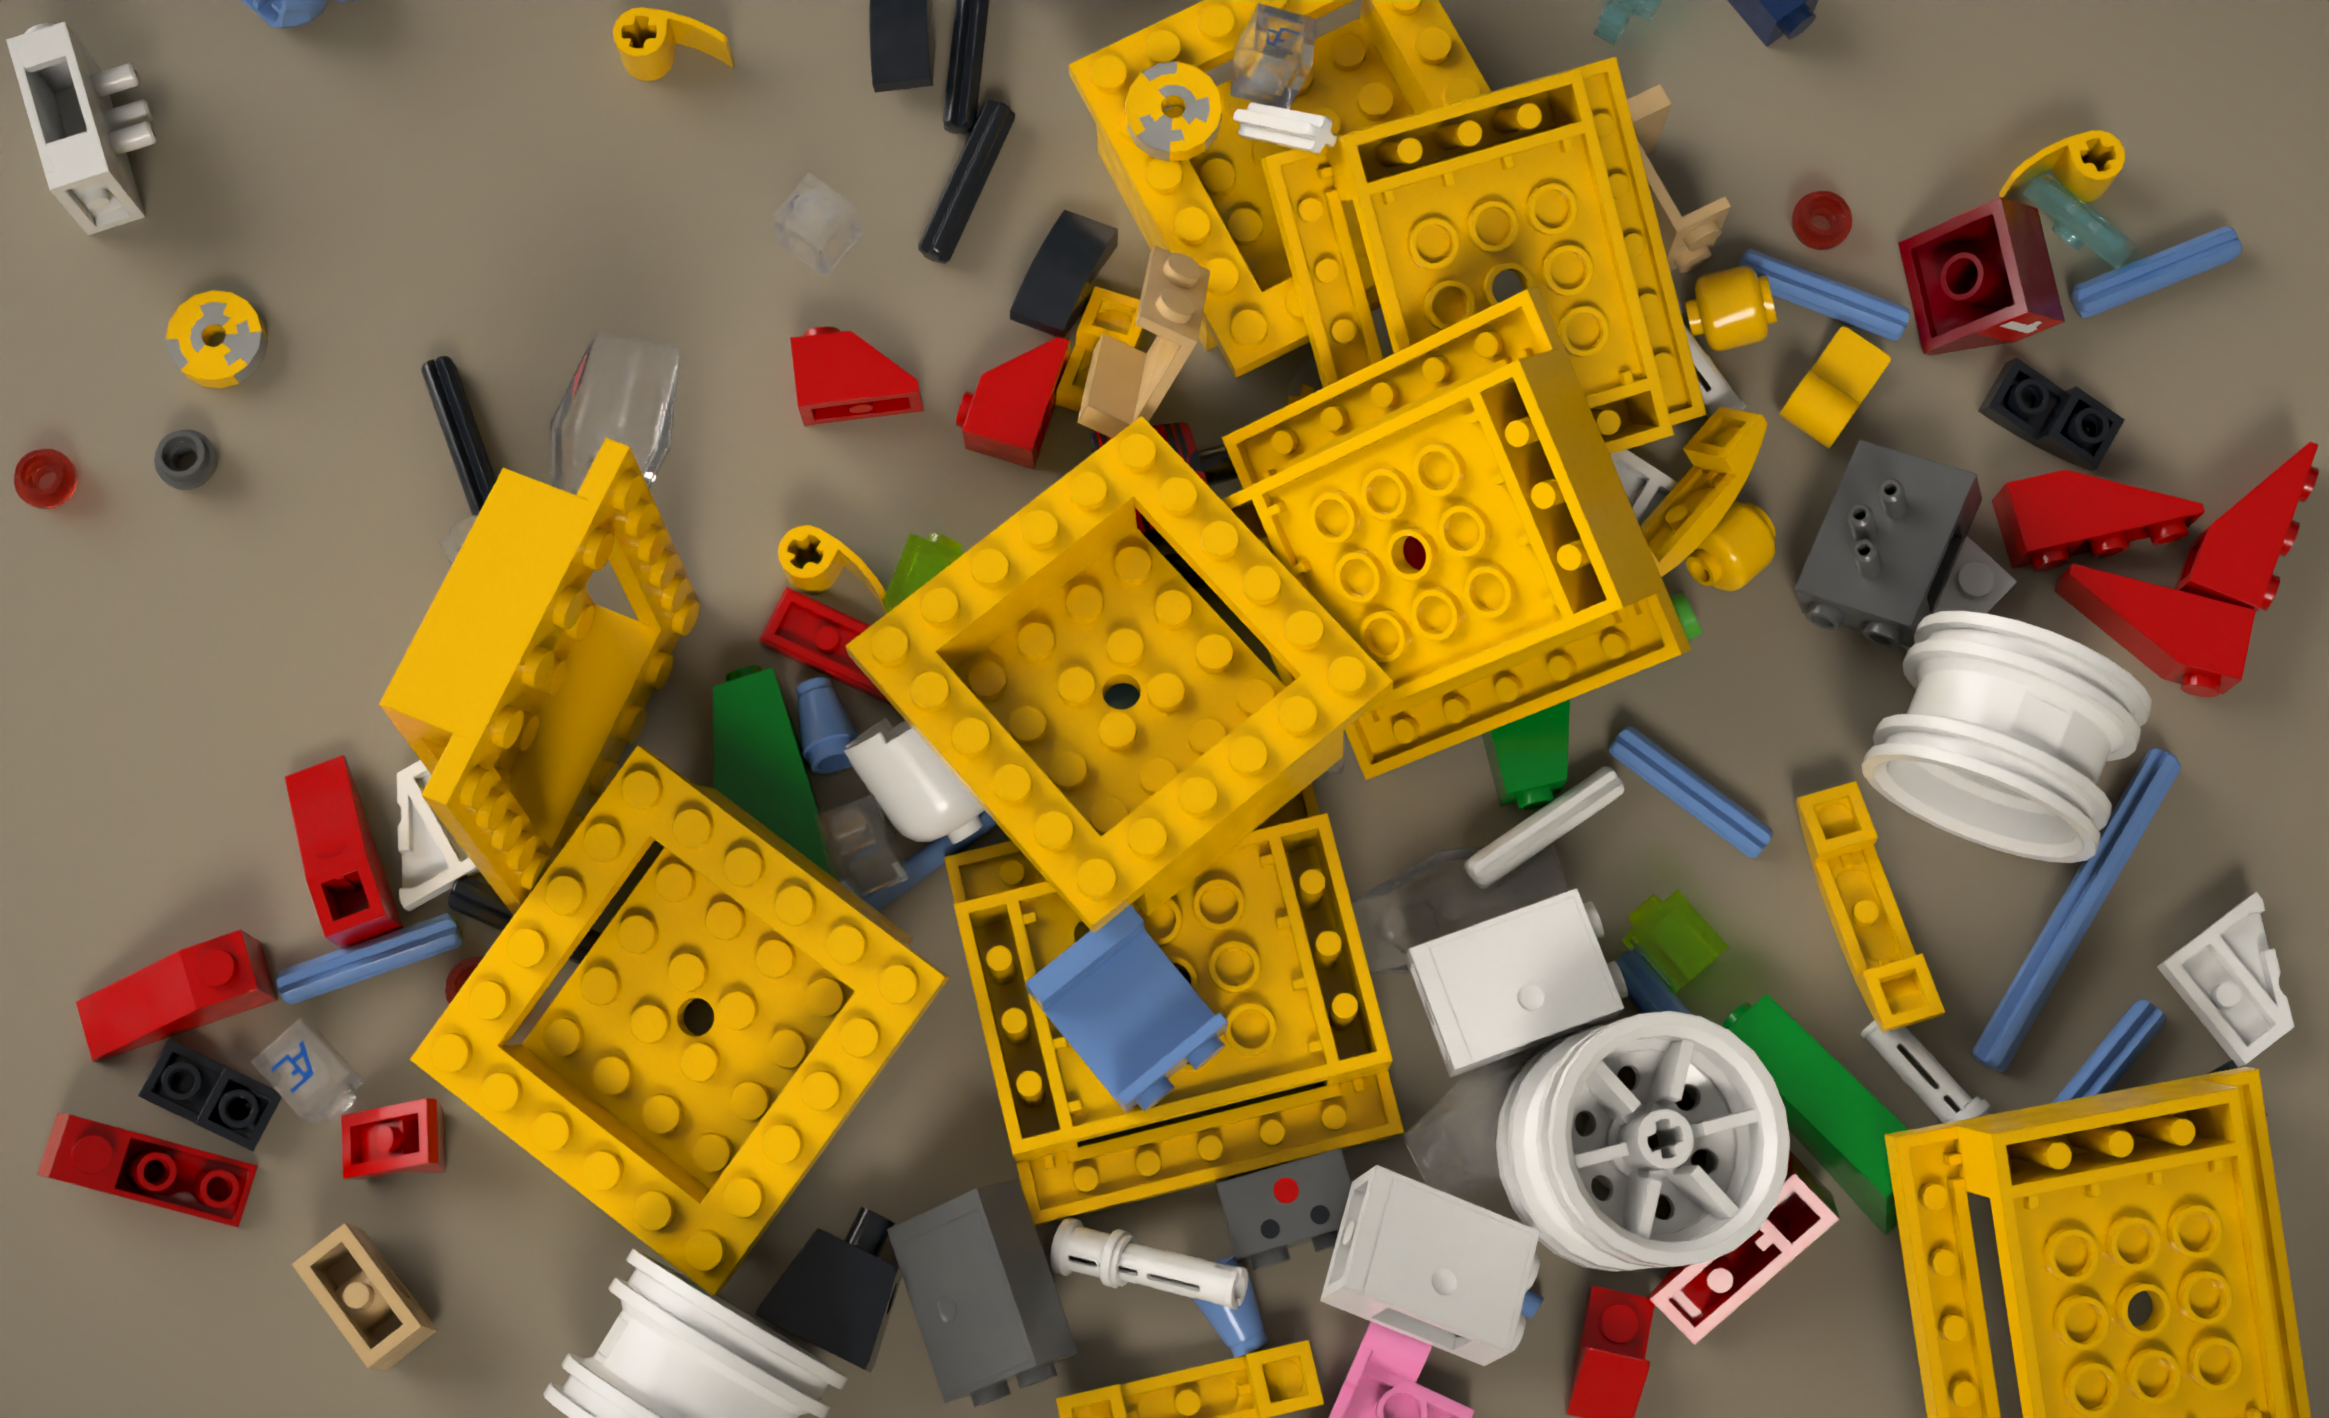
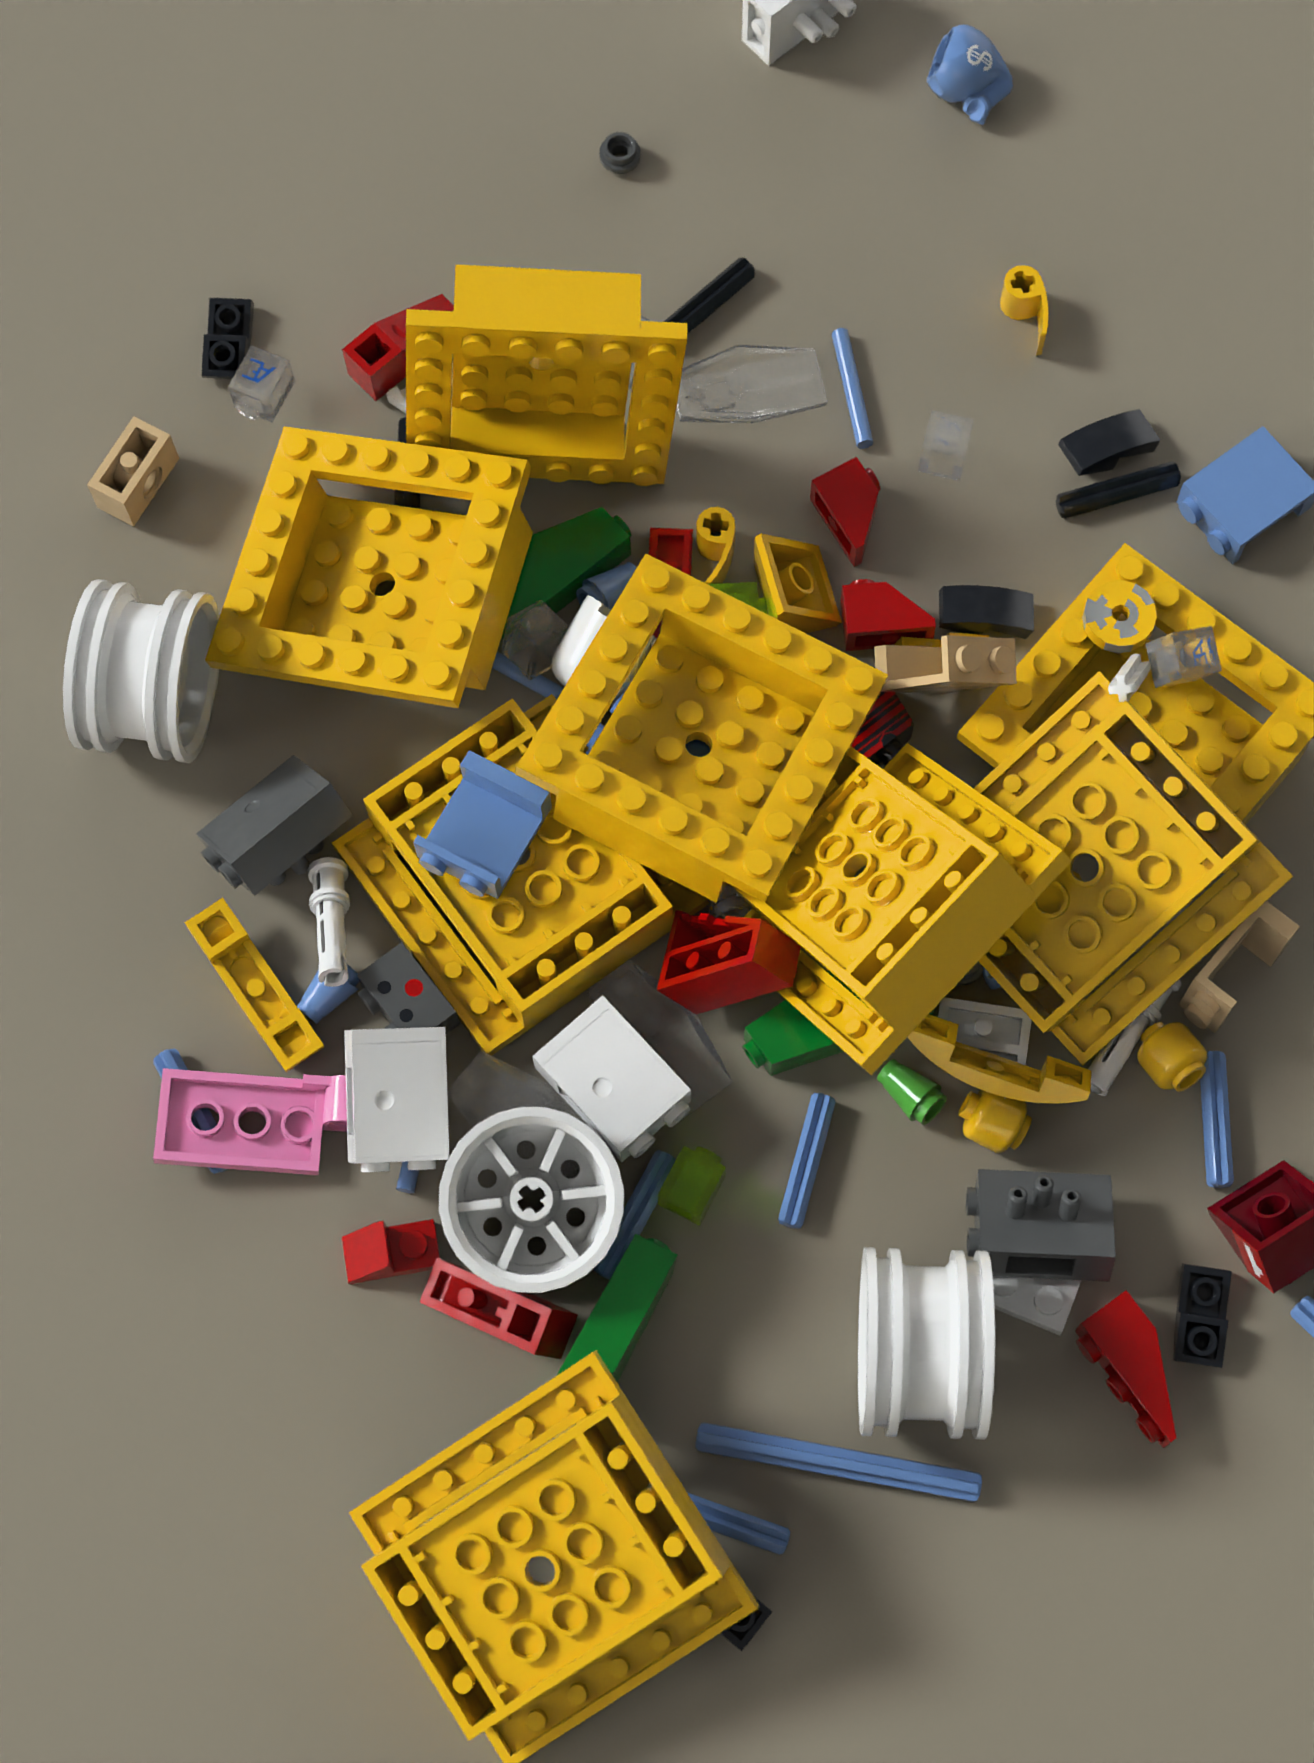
camera: 70 degrees right, 5 degrees down
(33, 467) = (572, 73): clear red plate -> none
(147, 1169) = (166, 321): red slope -> none
(177, 995) = (282, 295): red slope -> none
(202, 318) = (706, 153): yellow piece -> none
(369, 958) = (348, 390): medium blue axle -> none
(394, 1140) = (239, 452): red slope -> none
(674, 307) = (852, 388): none -> medium blue bar
(839, 1291) = (242, 744): black torso -> none
(925, 493) = (795, 583): none -> yellow slope
(966, 181) = (1024, 526): black axle -> none
(1424, 778) = (725, 961): none -> red wedge
(1544, 827) = (737, 1068): white axle -> none
(1829, 206) = (1278, 1086): clear red plate -> none
(1835, 386) = (1147, 1154): yellow panel -> none
(1863, 909) = (773, 1308): yellow slope -> none
(1887, 1045) = (673, 1390): white pin -> none
(2168, 630) = (1074, 1462): red slope -> none
(2233, 982) = (831, 1593): white wing -> none
(2241, 548) = (1159, 1483): red slope -> none

